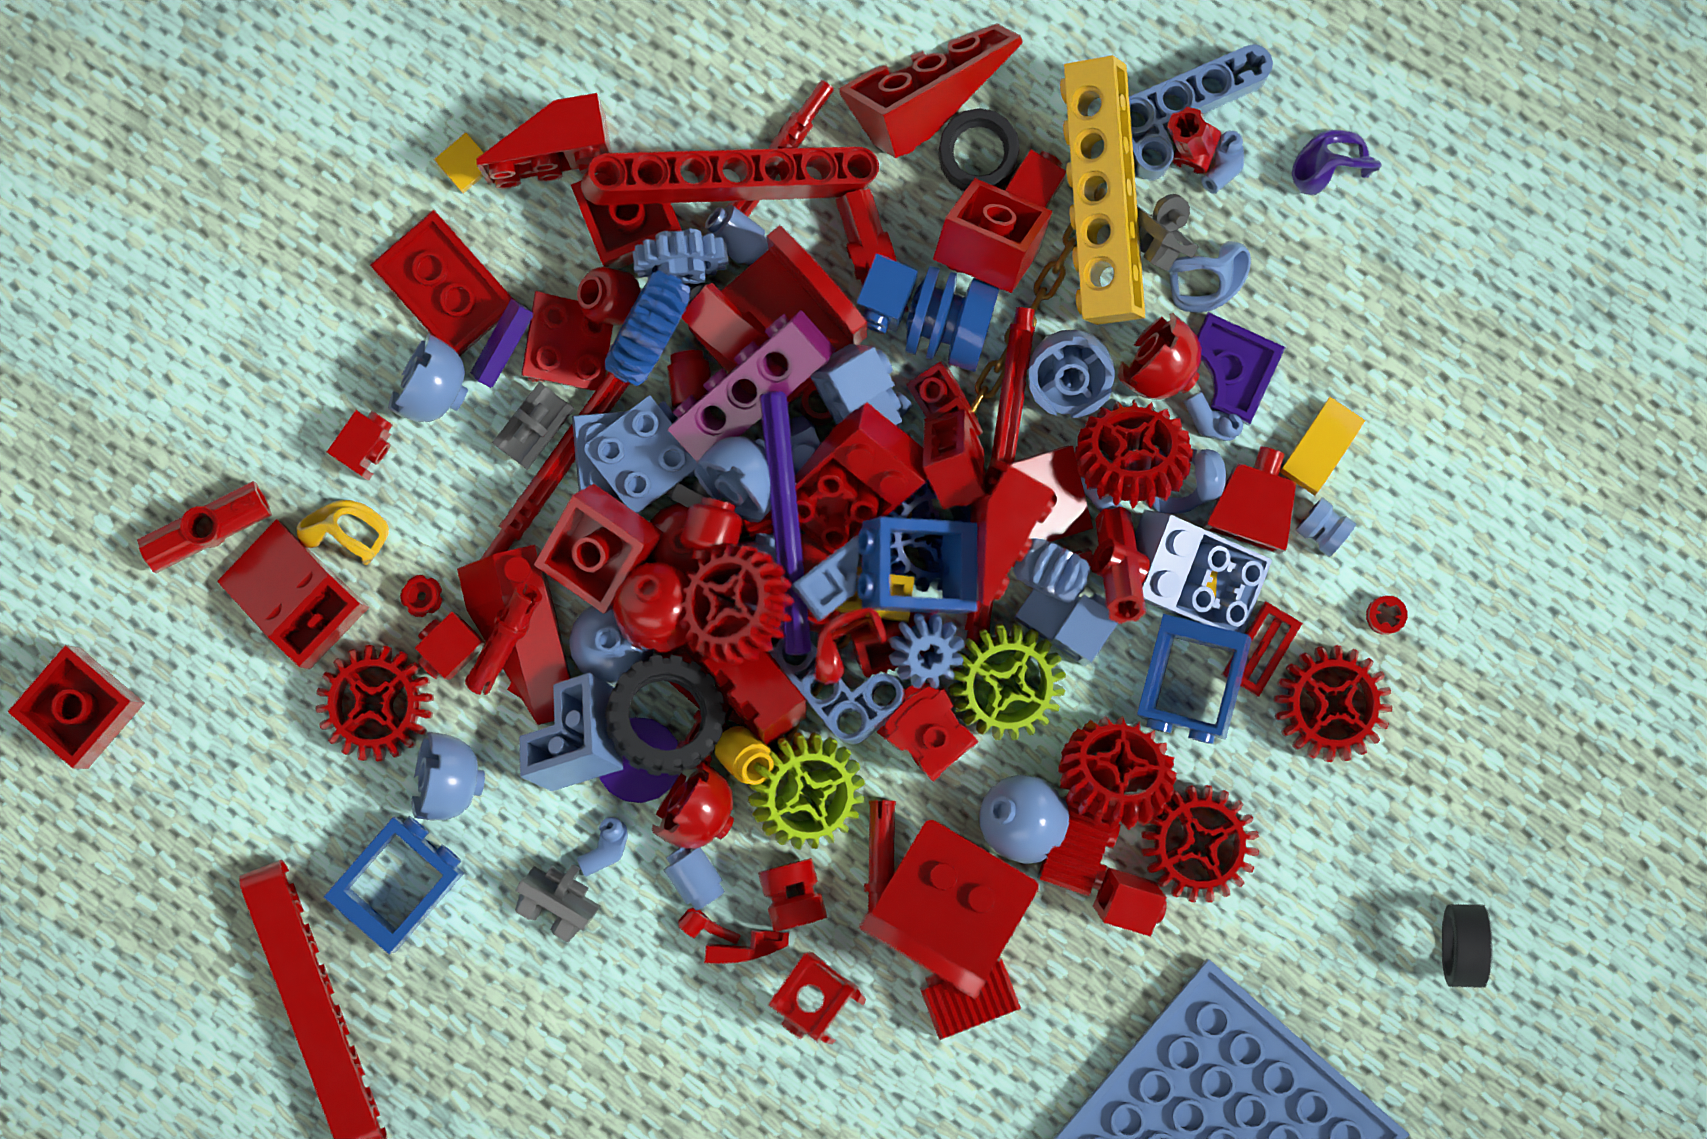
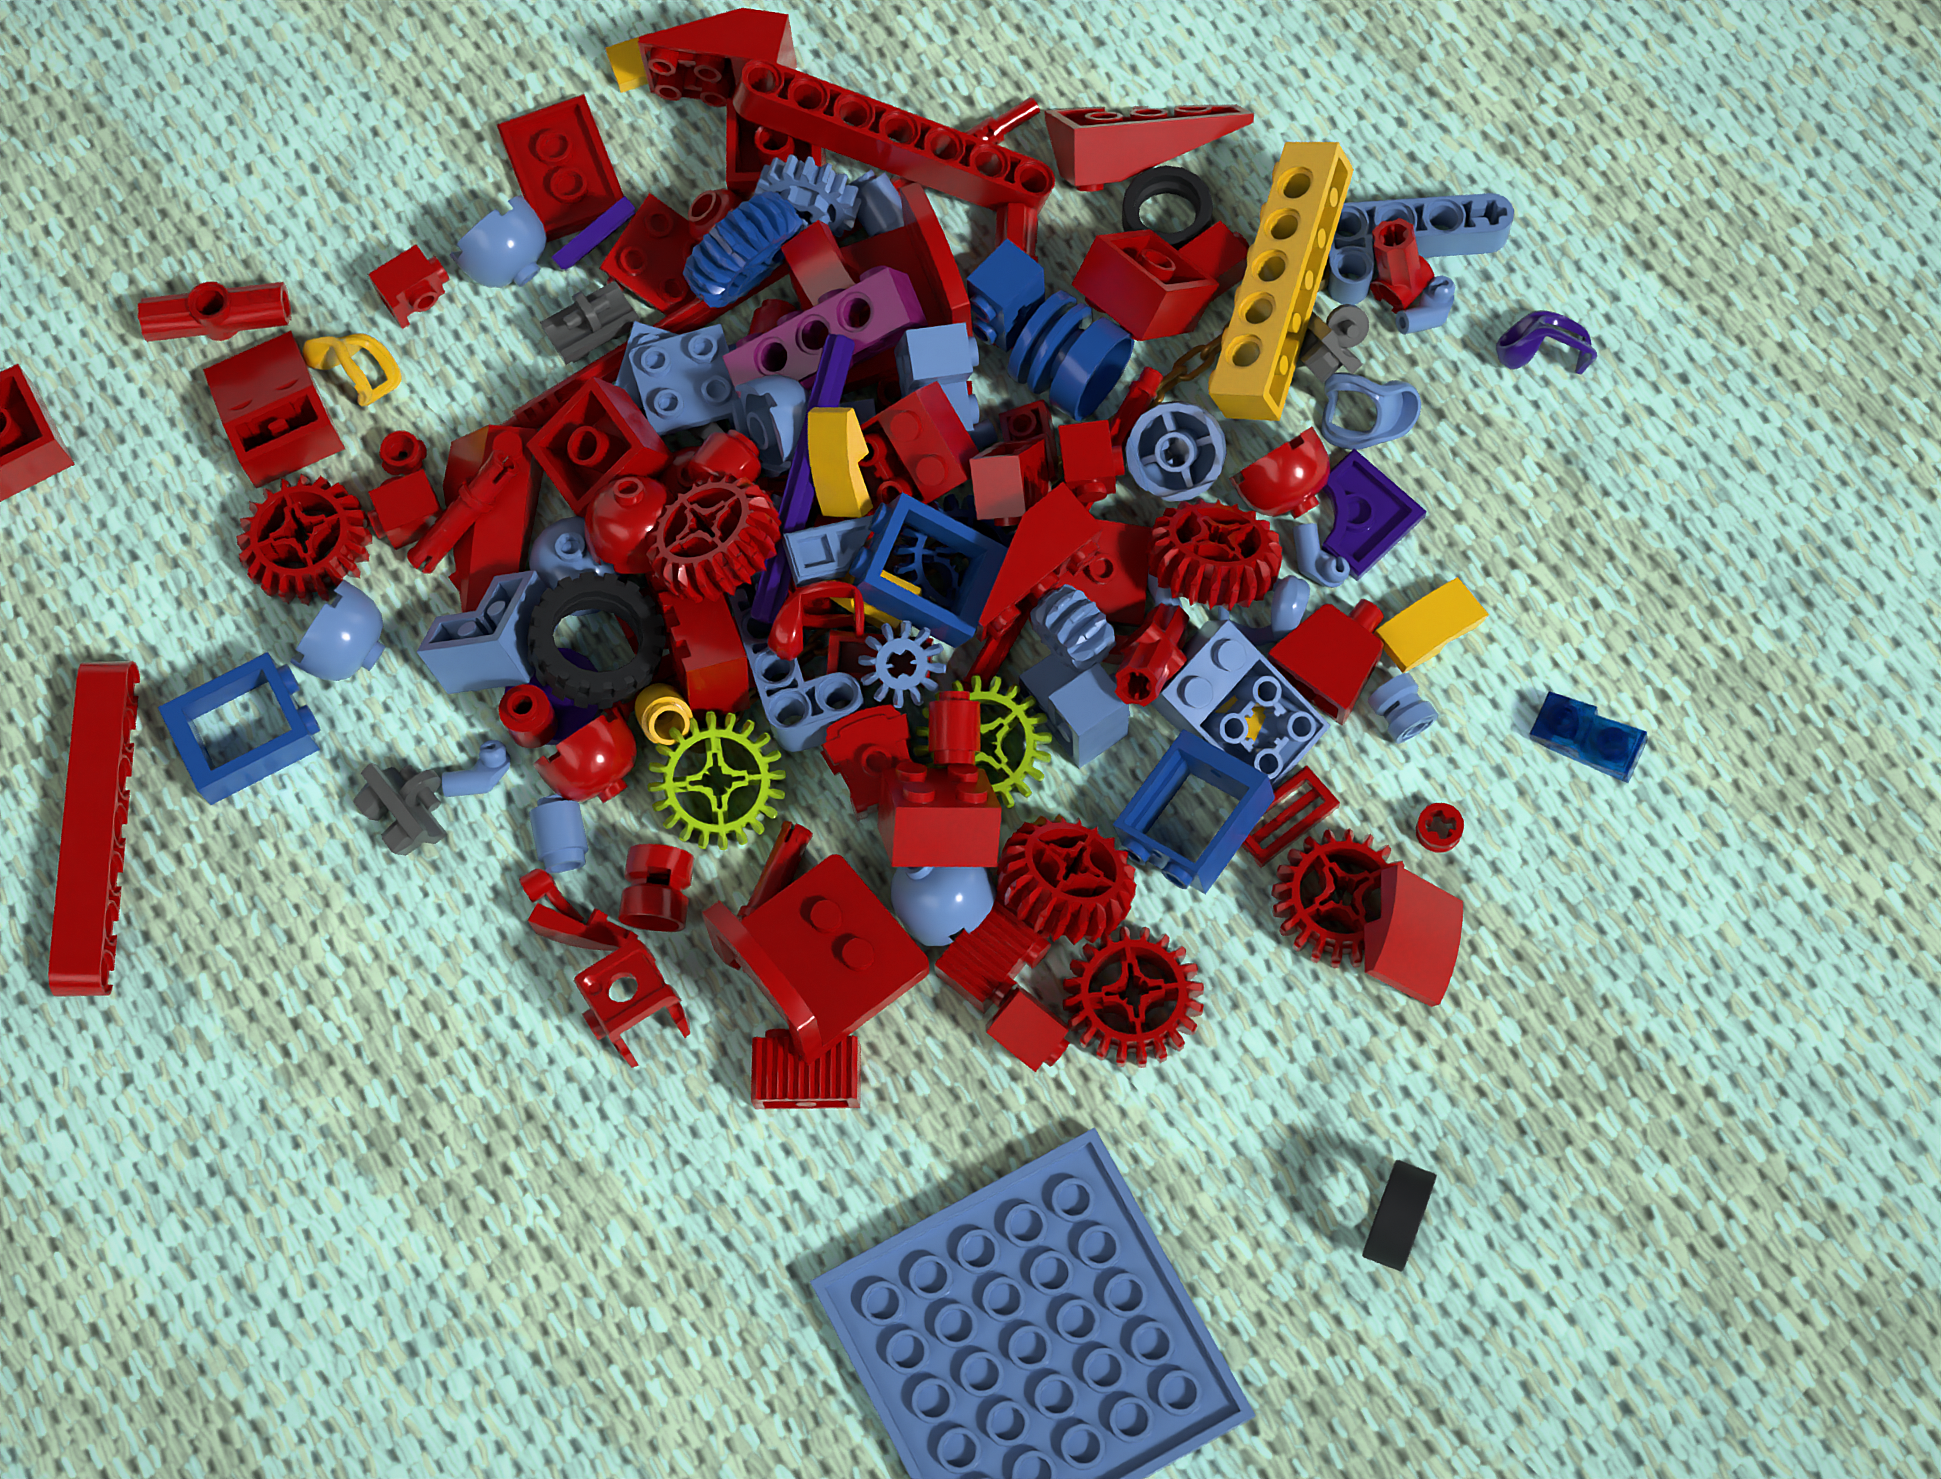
camera: 25 degrees right, 15 degrees down
(647, 799) = (528, 716): none -> red brick
(810, 503) = (834, 455): none -> yellow slope
(989, 690) = (954, 728): none -> red brick
(1006, 770) = (938, 816): none -> red brick
(1007, 414) = (1090, 460): none -> red brick
(1405, 718) = (1415, 938): none -> red slope
(1476, 495) = (1590, 739): none -> clear blue slope

